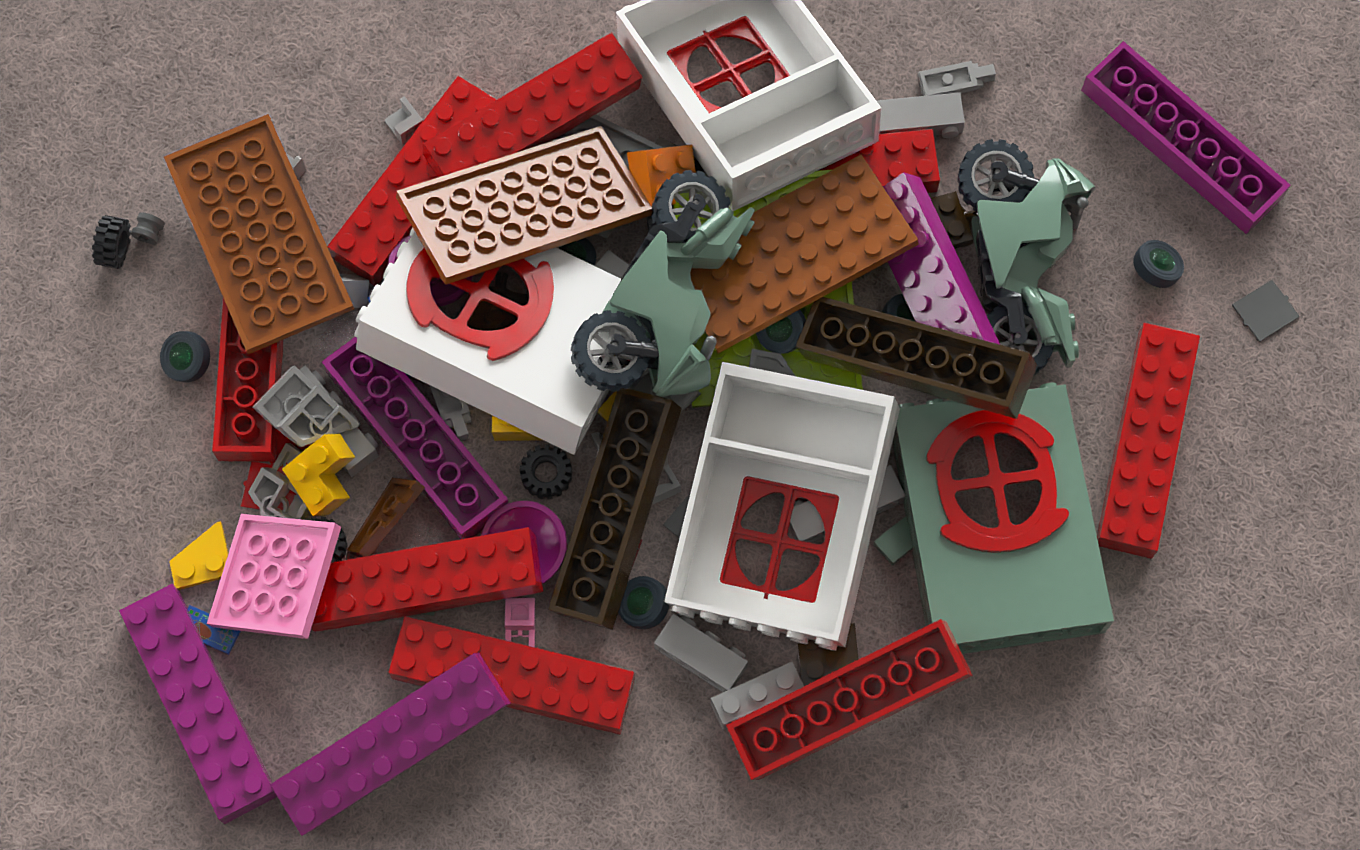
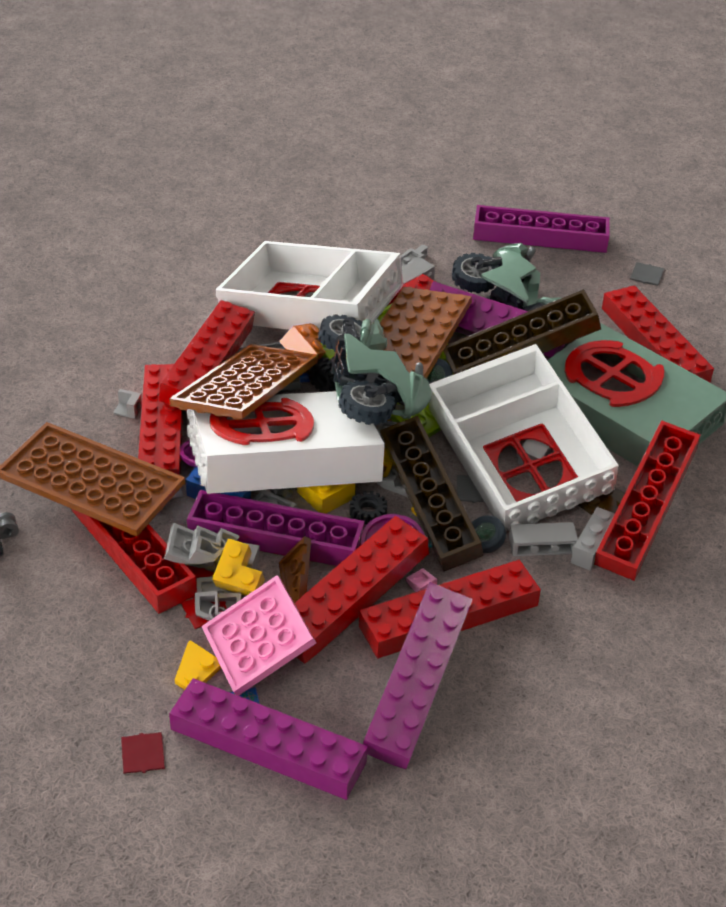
camera: 40 degrees left, 30 degrees down
(79, 627) = (142, 753): none -> dark red piece
(185, 356) = (89, 571): black wheel -> none
(1158, 263) = (582, 276): black wheel -> none

